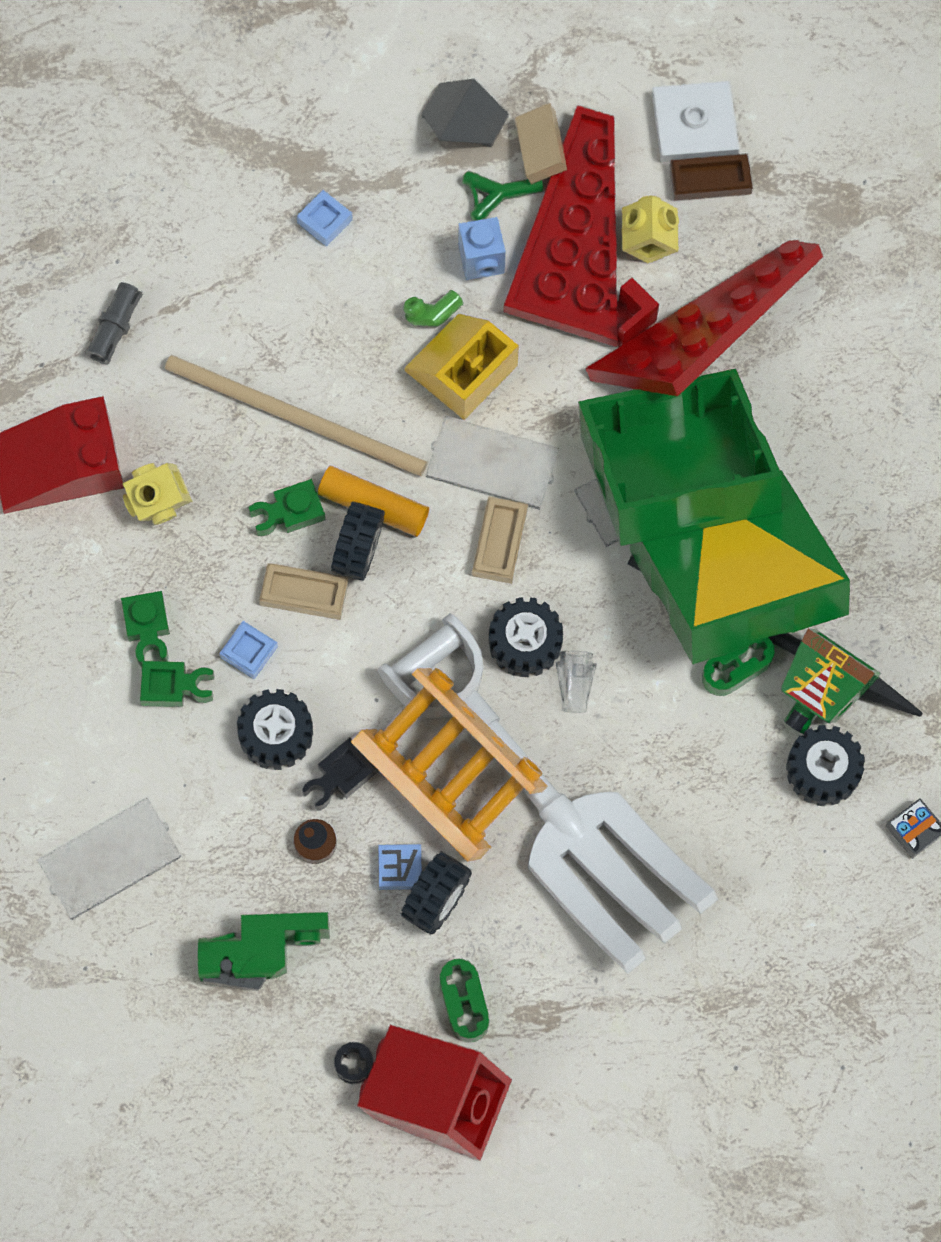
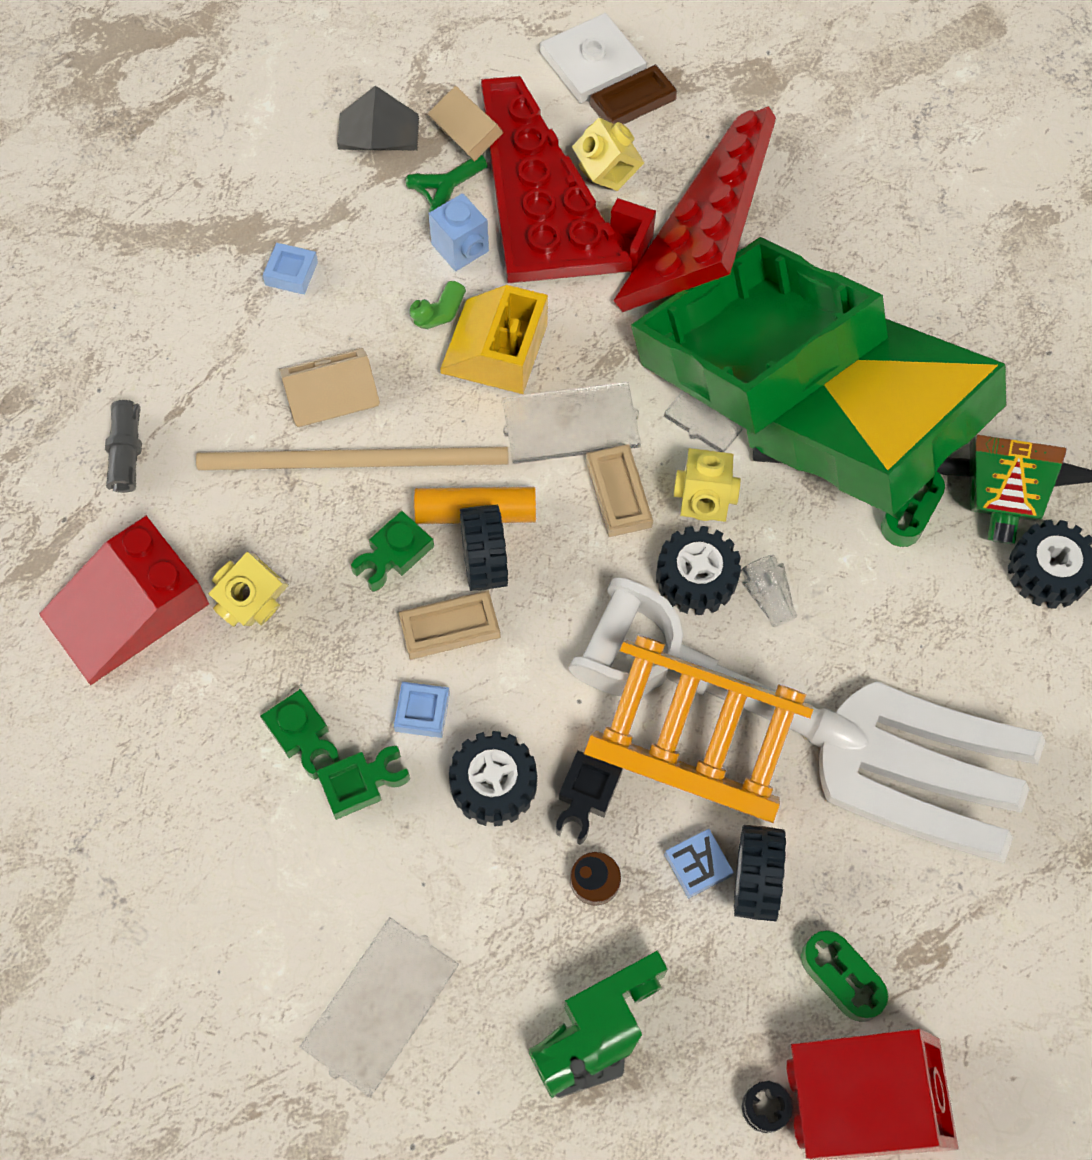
camera: 25 degrees left, 5 degrees down
(305, 342) = (330, 387): none -> tan panel
(569, 569) = (707, 485): none -> light yellow brick

